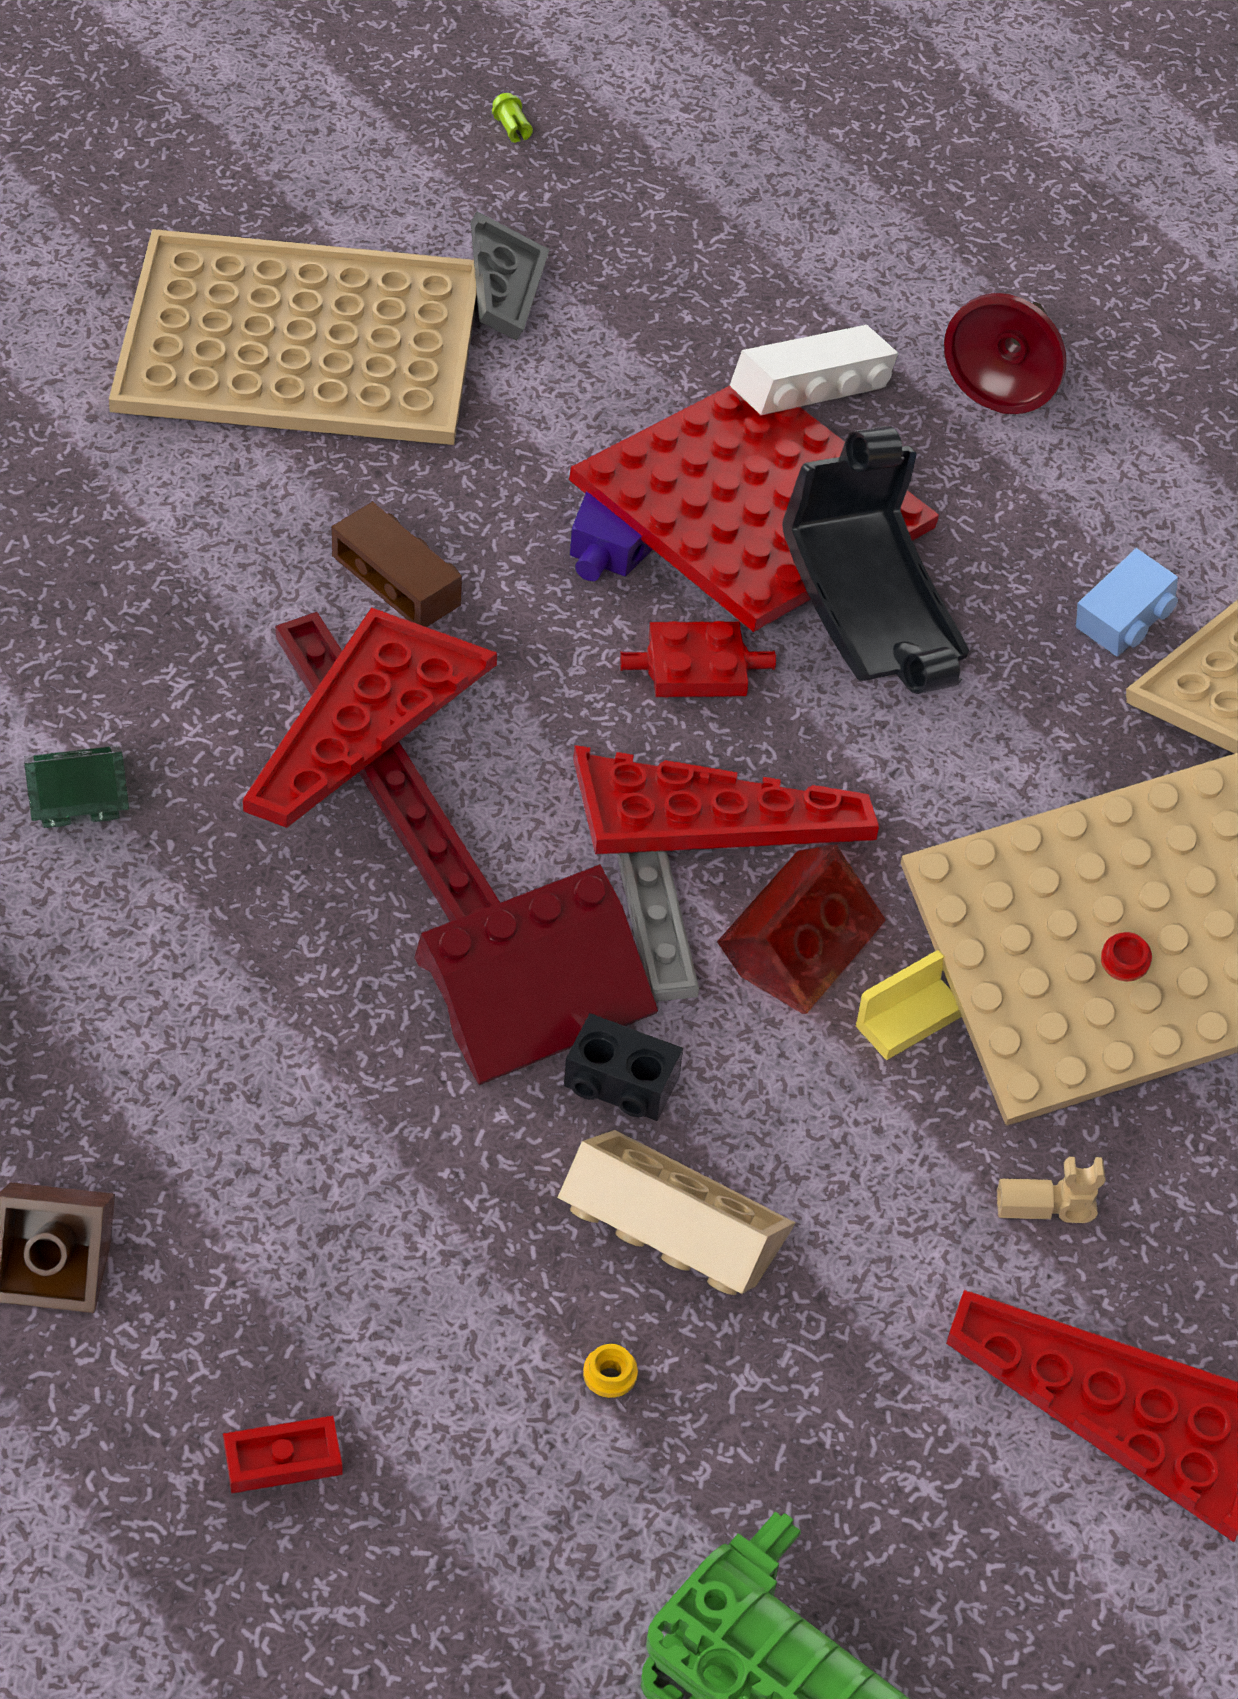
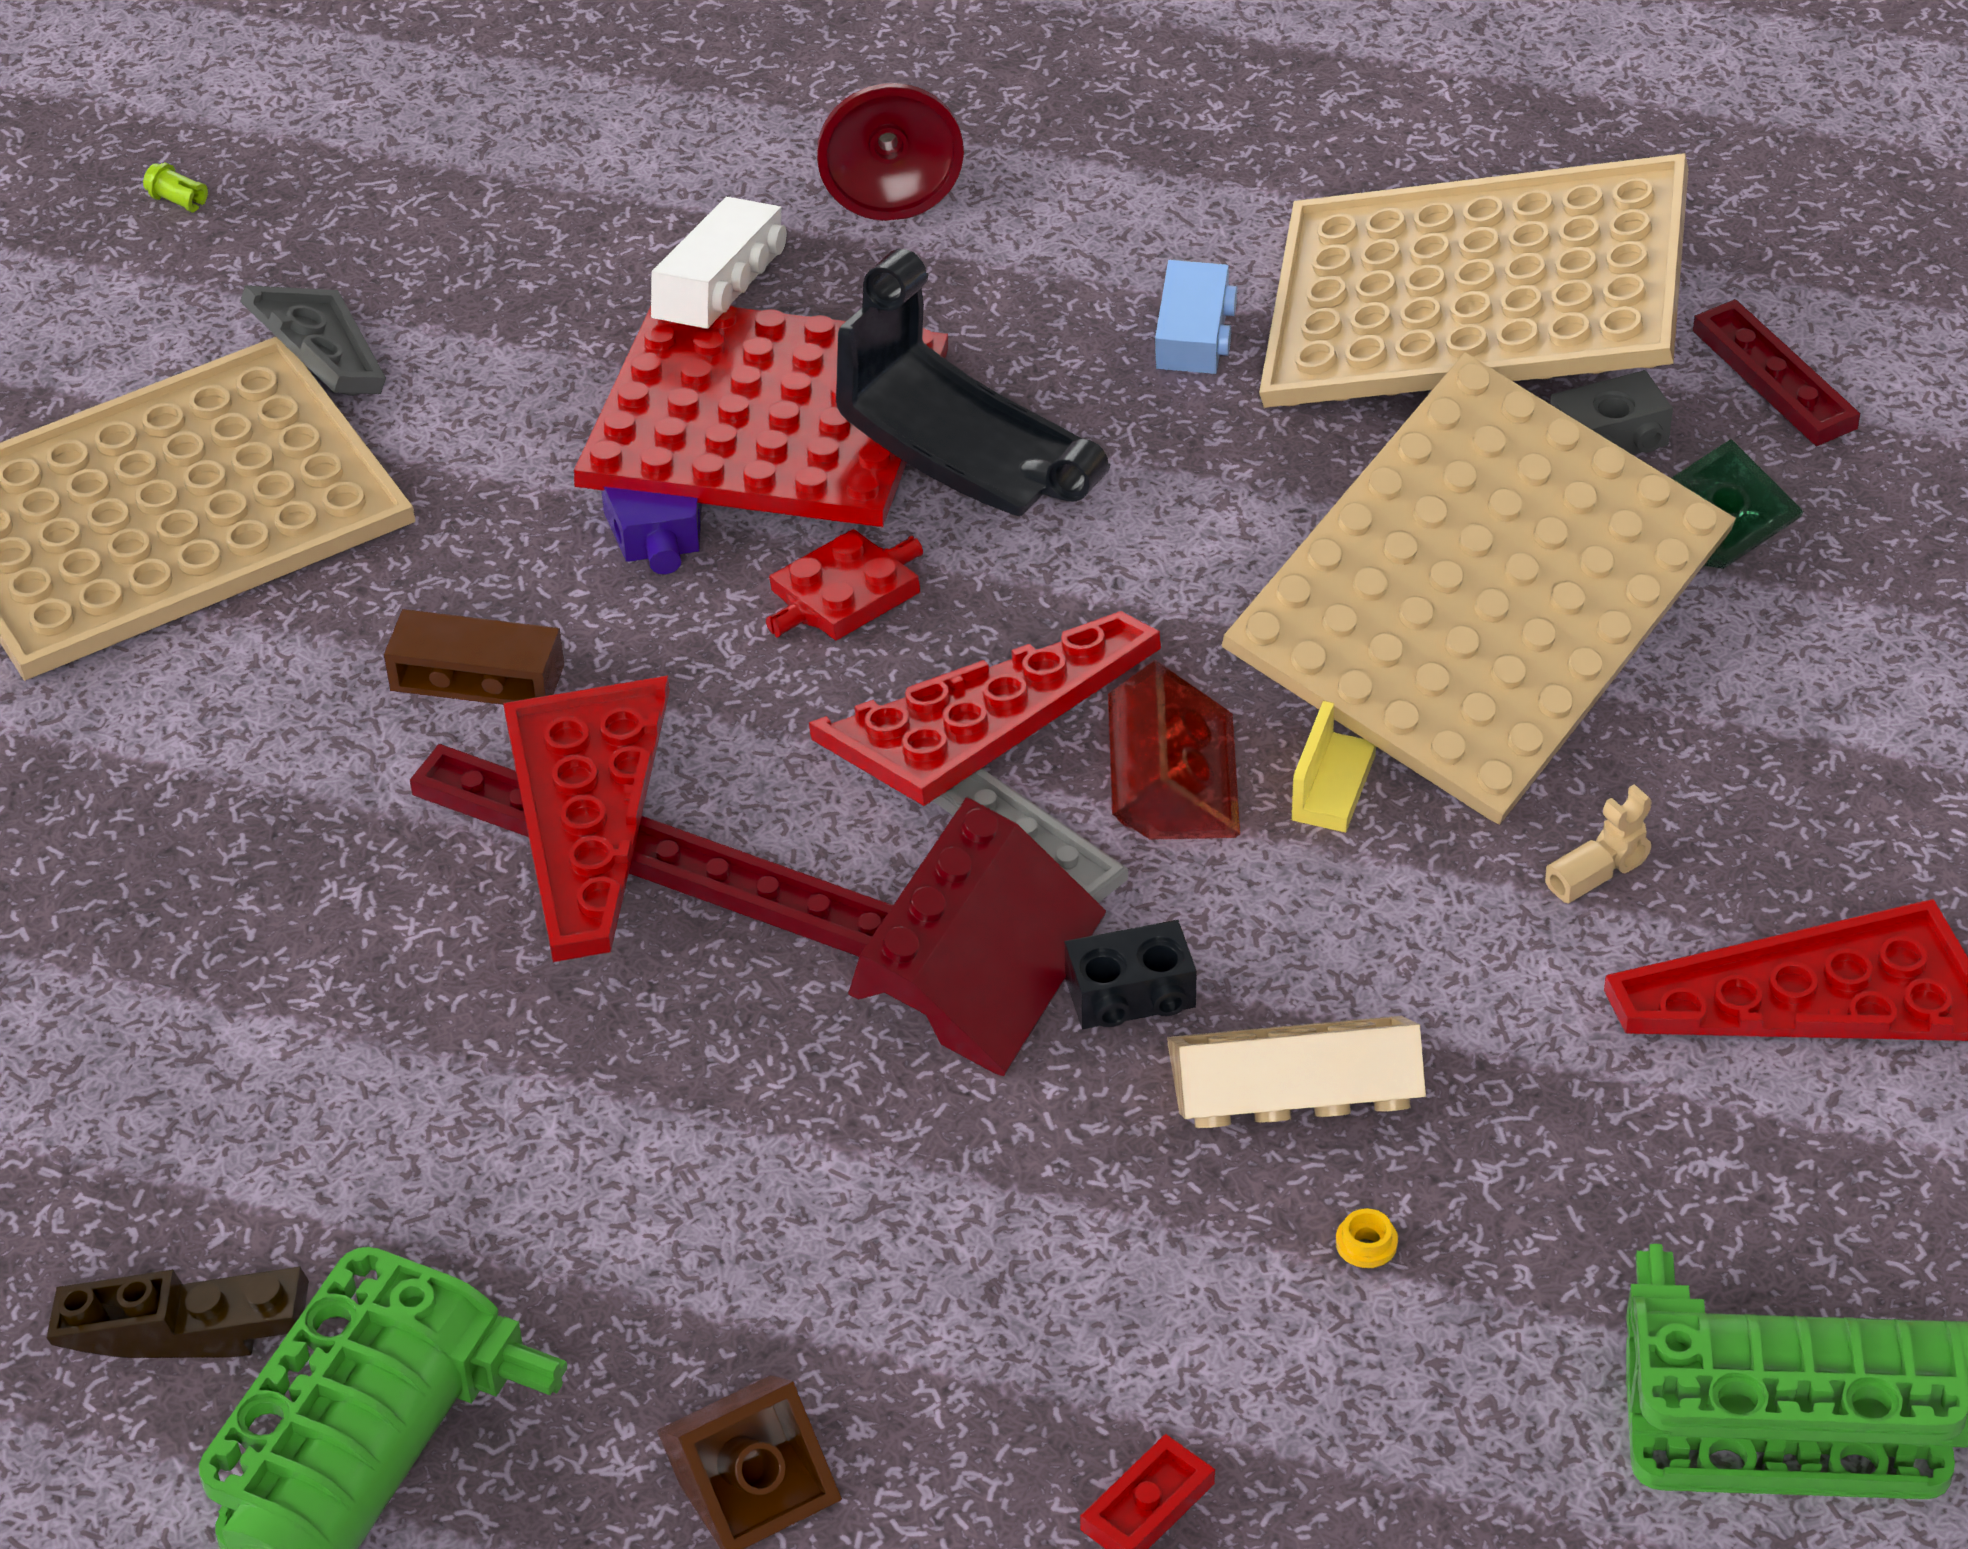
camera: 30 degrees left, 5 degrees down
(76, 785) = (351, 1038): clear green slope -> none
(1126, 956) = (1500, 604): red plate -> none

